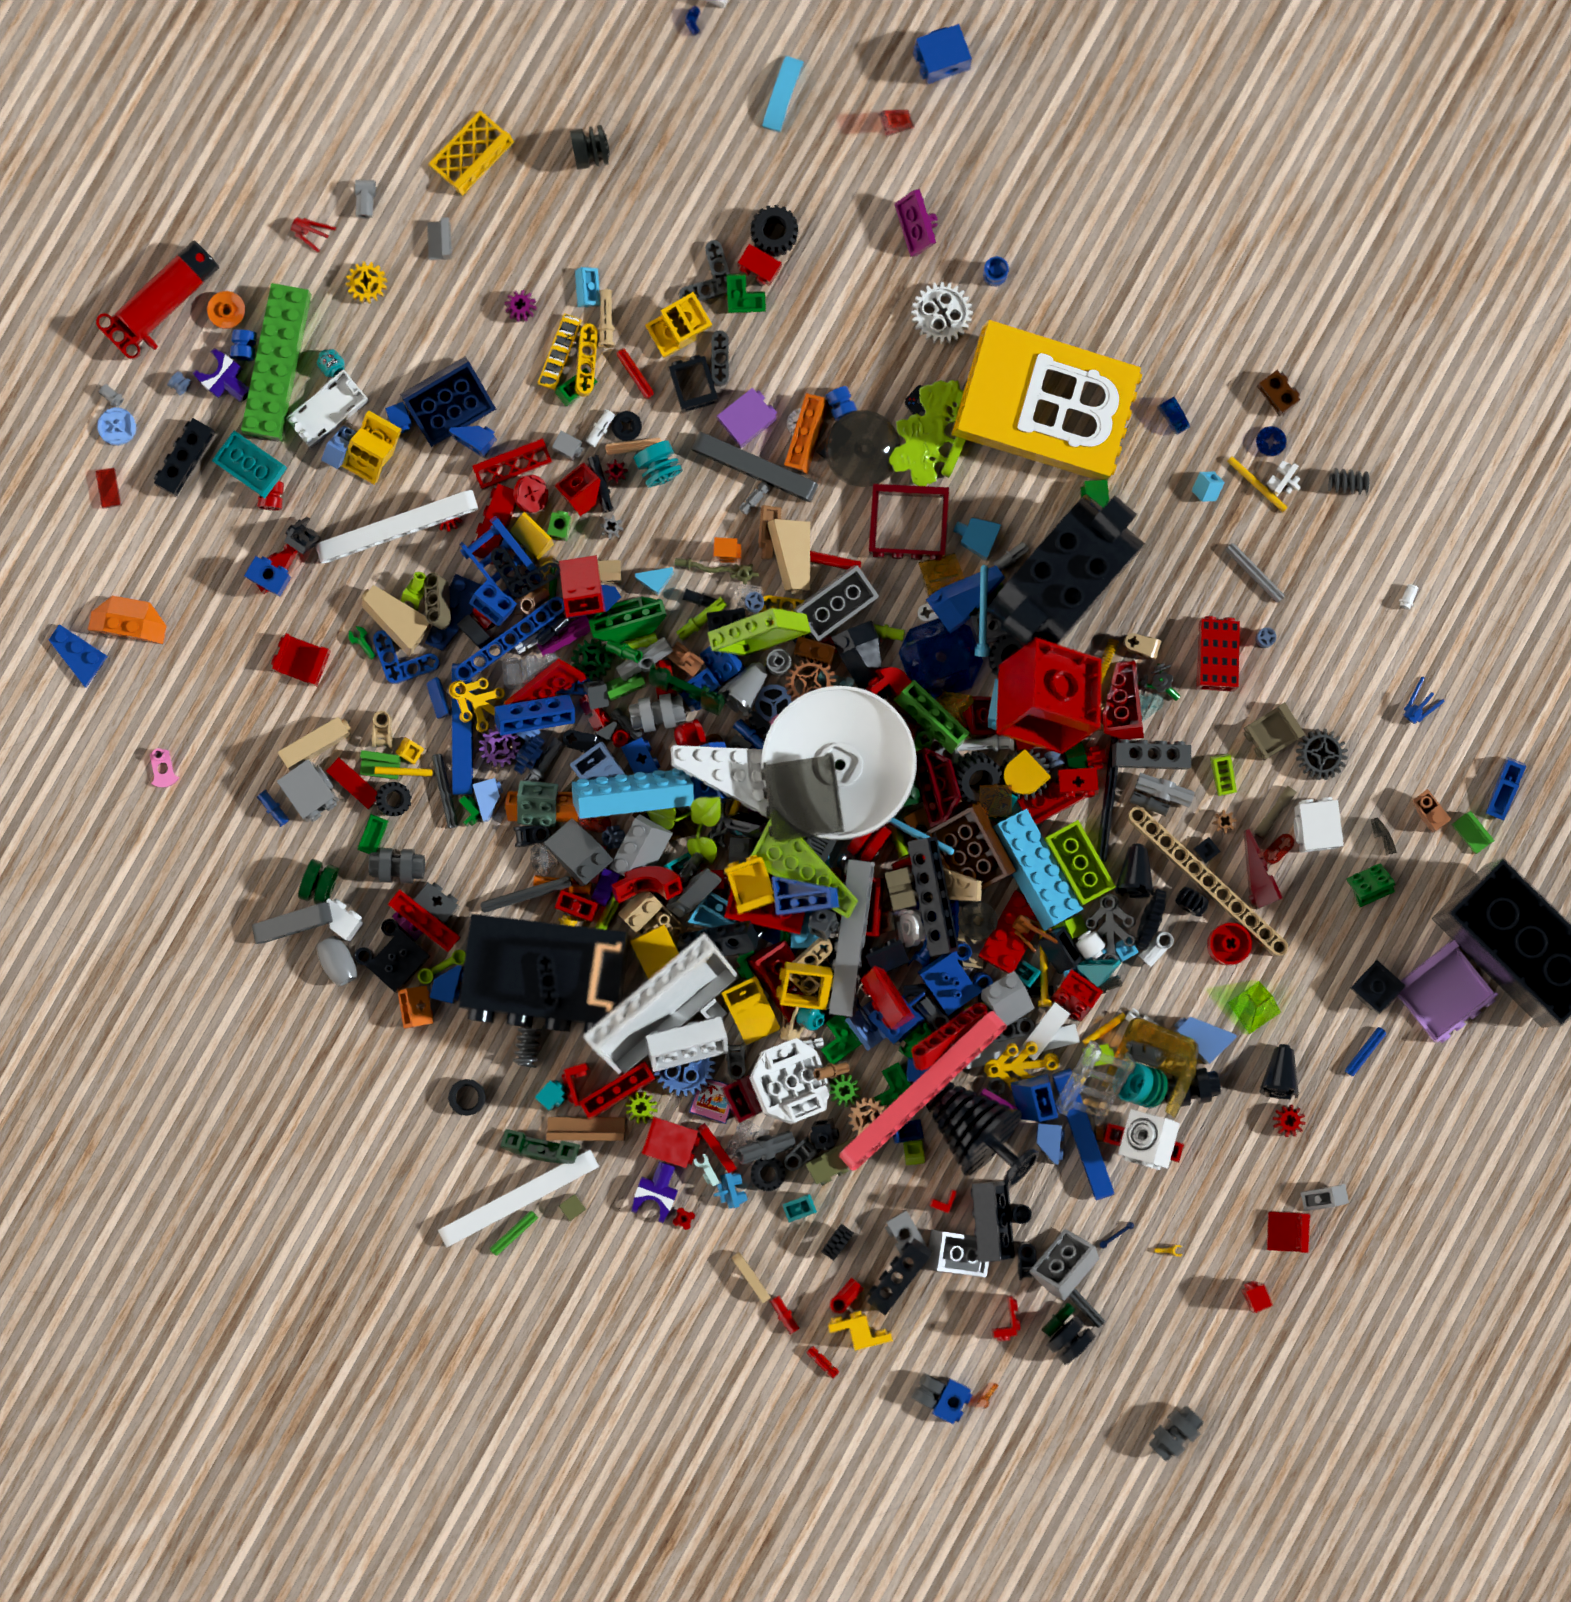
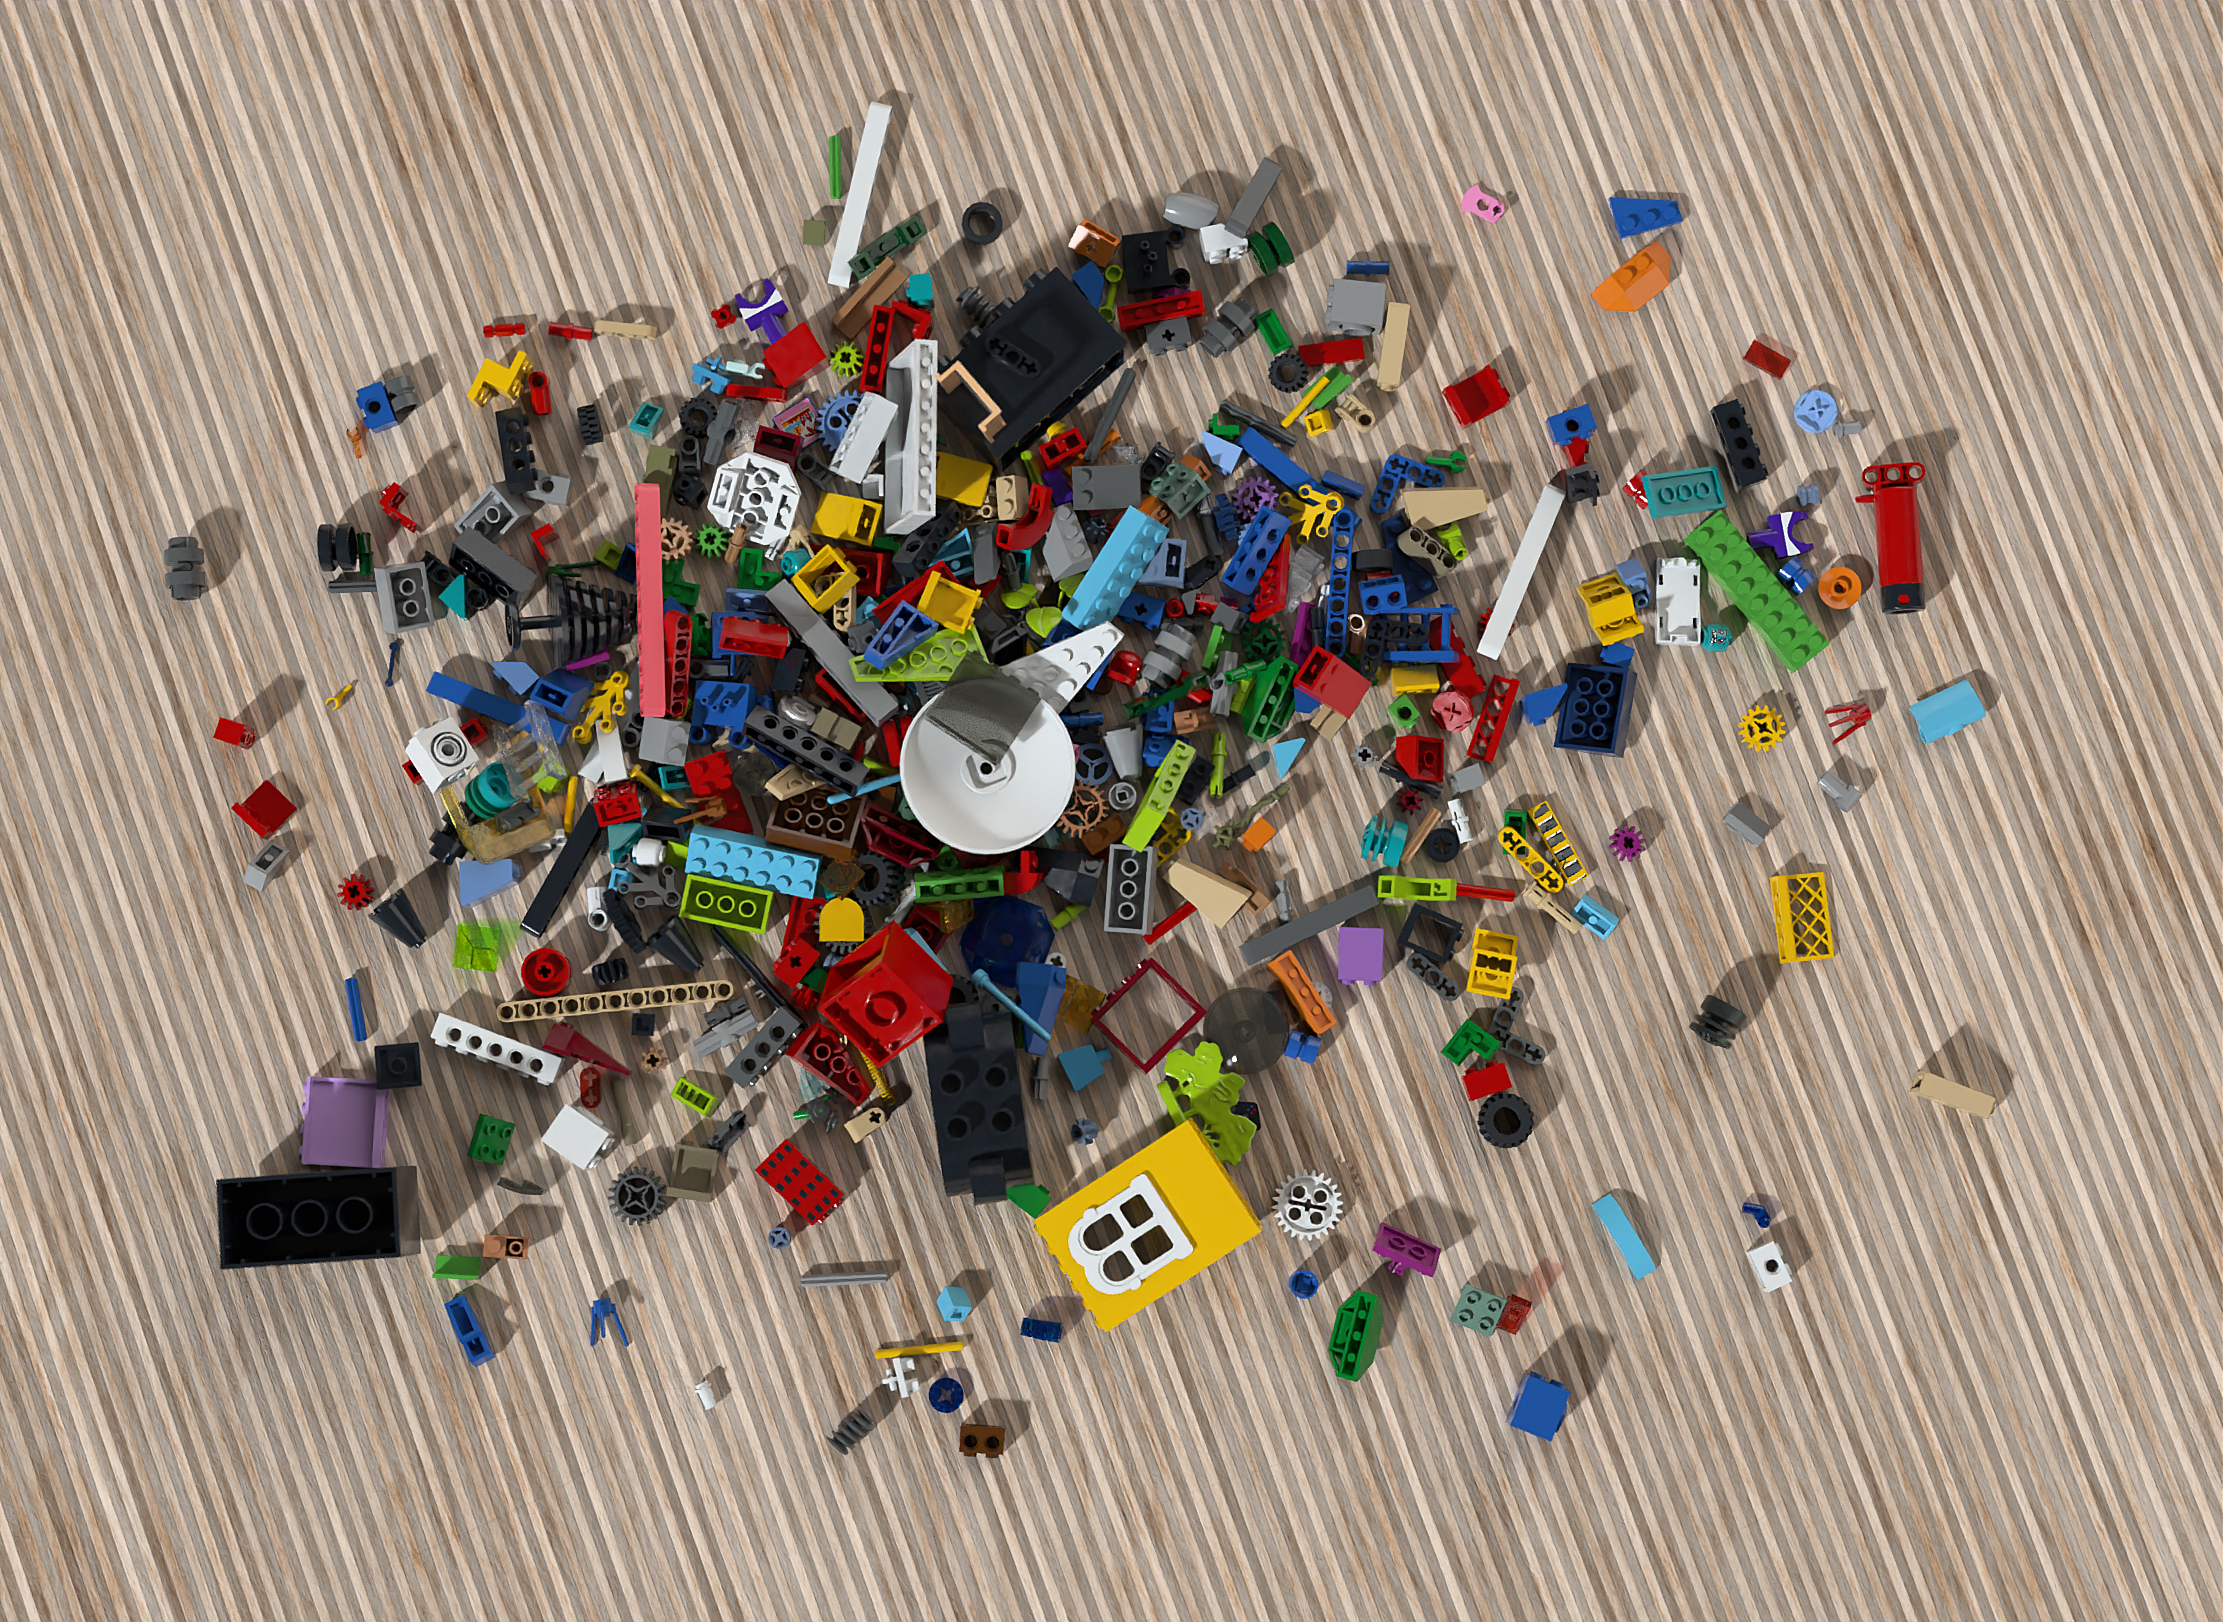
camera: 130 degrees right, 0 degrees up
(250, 171) = (1947, 712): none -> medium azure panel
(670, 416) = (1417, 889): none -> lime arch
(912, 146) = (1478, 1310): none -> sand green hinge
(956, 1174) = (559, 569): none -> dark green plant
(1000, 209) = (1356, 1335): none -> green wedge
(1021, 498) = (1084, 1131): none -> sand blue gear
(1034, 1229) = (455, 596): none -> teal slope
(1153, 993) = (562, 873): none -> black beam
(1227, 730) = (729, 1132): none -> black hinge
(1305, 944) = (443, 1034): none -> white brick

